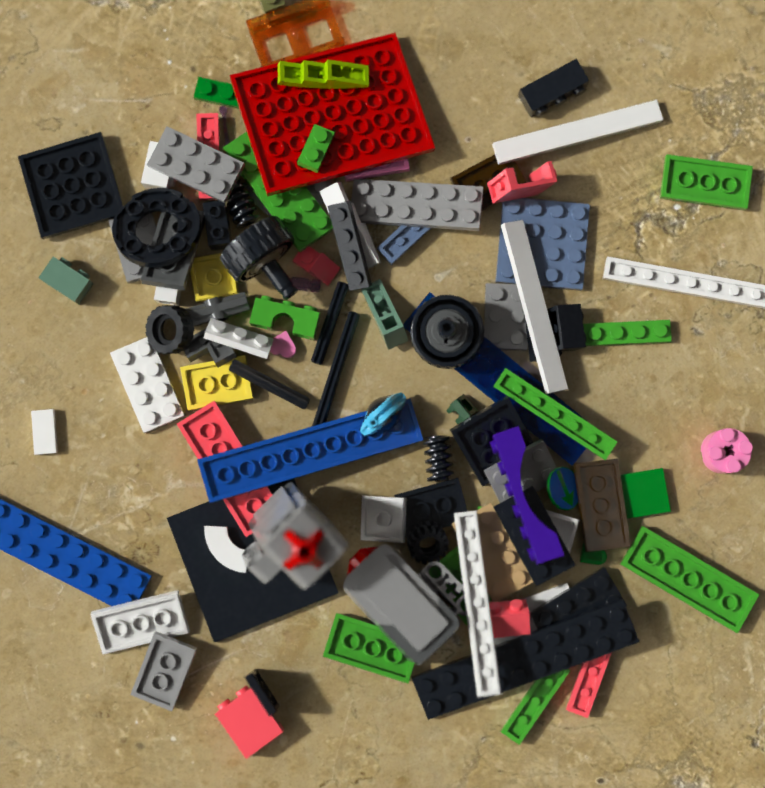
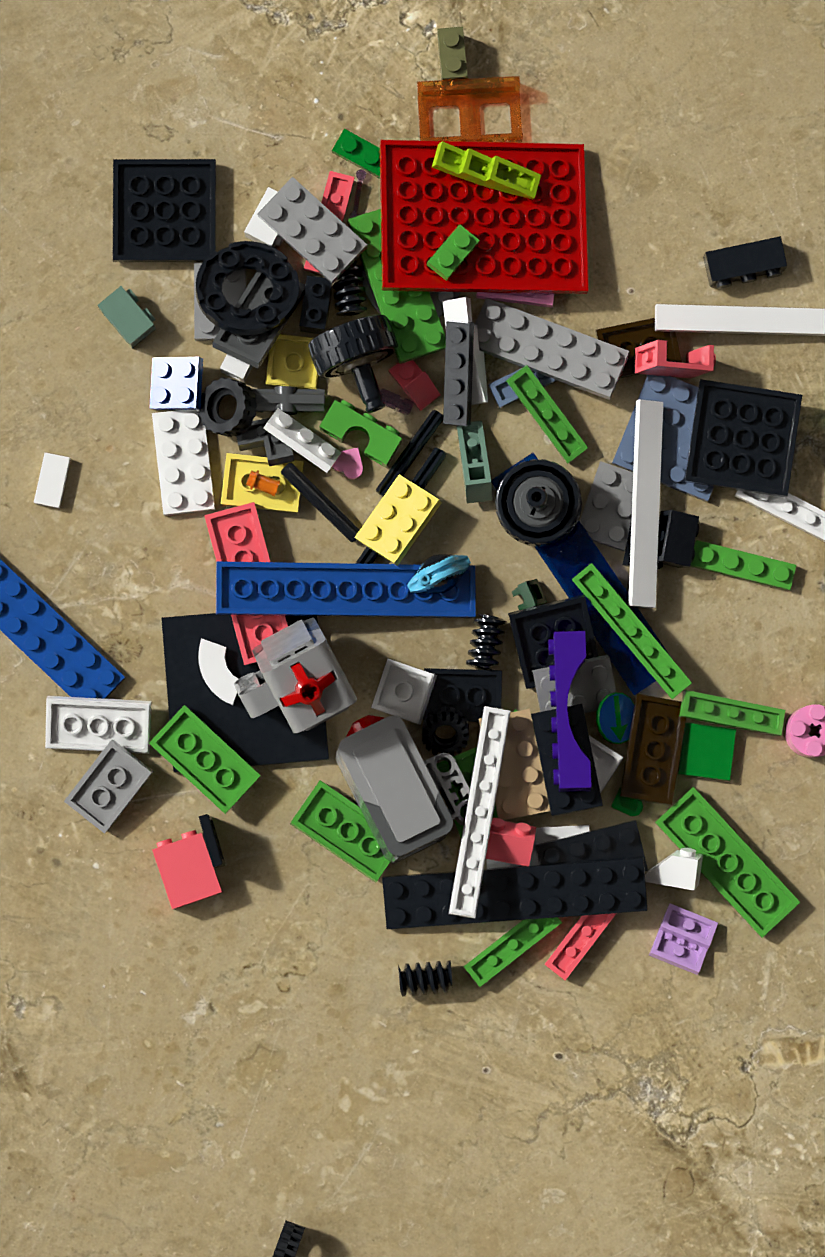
camera: 15 degrees right, 0 degrees up
(122, 322) = (176, 383): none -> plate
(216, 383) = (262, 483): none -> orange pin
(236, 625) = (204, 759): none -> bright green plate
(336, 380) = (398, 520): none -> light yellow plate
(431, 257) = (546, 414): none -> bright green plate
(472, 752) = (425, 978): none -> black piece
(597, 229) = (743, 438): none -> black plate
(651, 599) = (677, 870): none -> white slope
(656, 456) = (732, 713): none -> bright green plate
(672, 653) = (683, 939): none -> lavender slope

